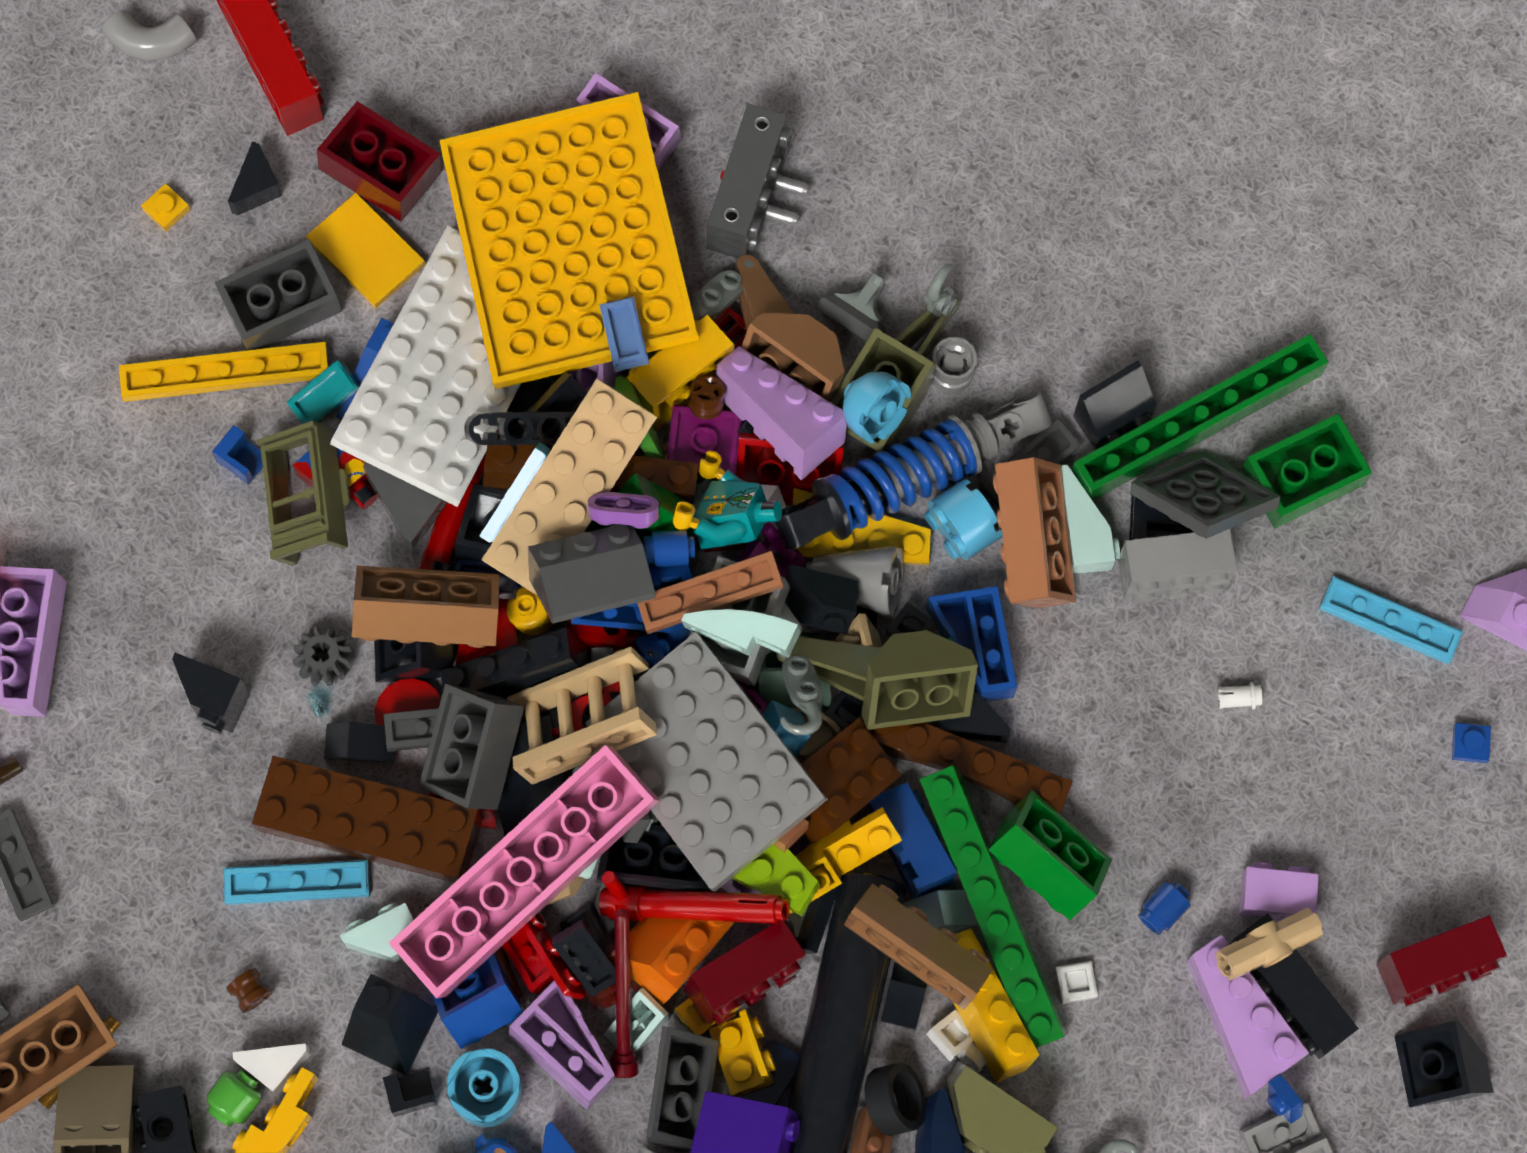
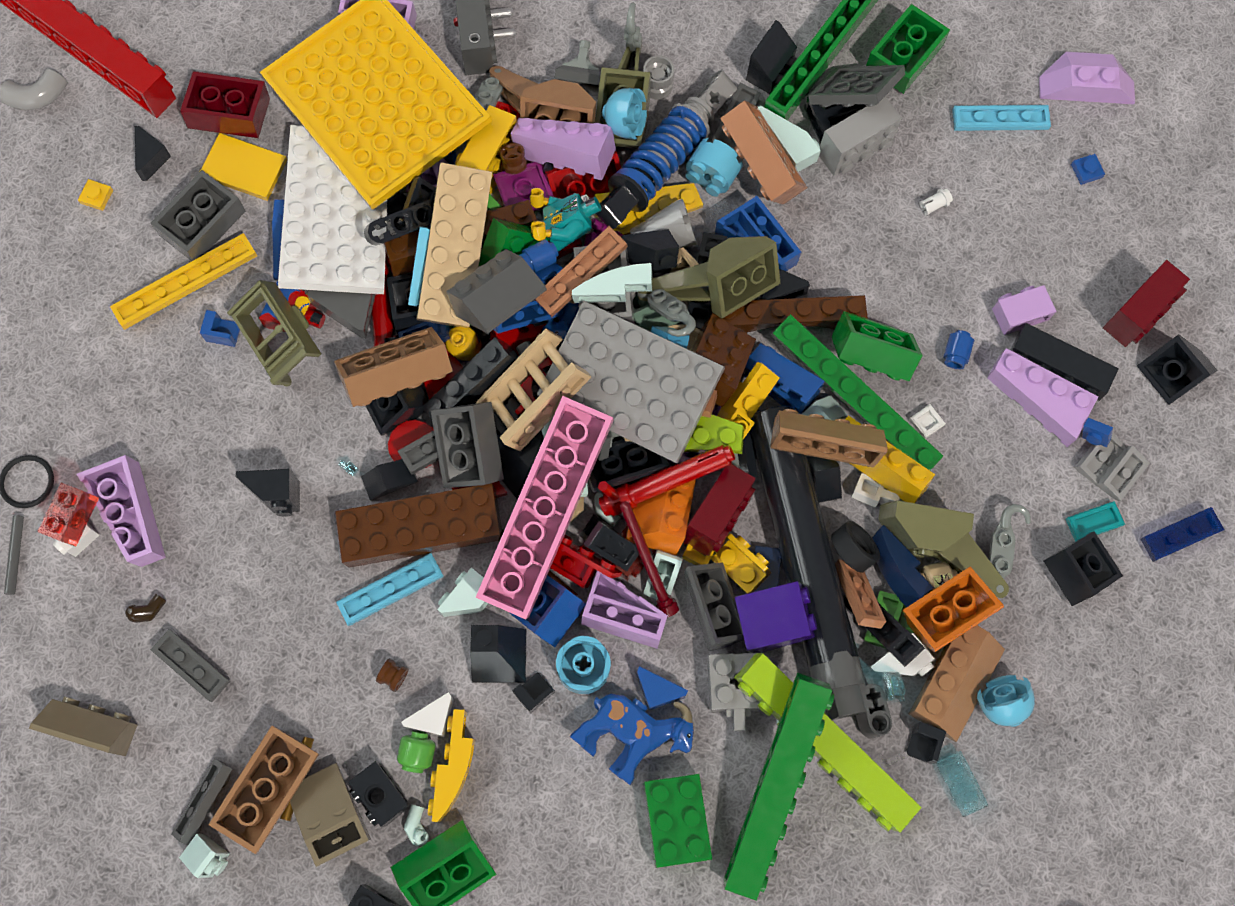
camera: 25 degrees left, 0 degrees up
(309, 662) = (337, 443): dark grey gear -> none
(324, 393) = (258, 264): teal tile -> none
(623, 509) = (497, 240): medium lavender plate -> none
(624, 334) = (442, 135): medium blue tile -> none
(1269, 944) = (1040, 339): tan piece -> none

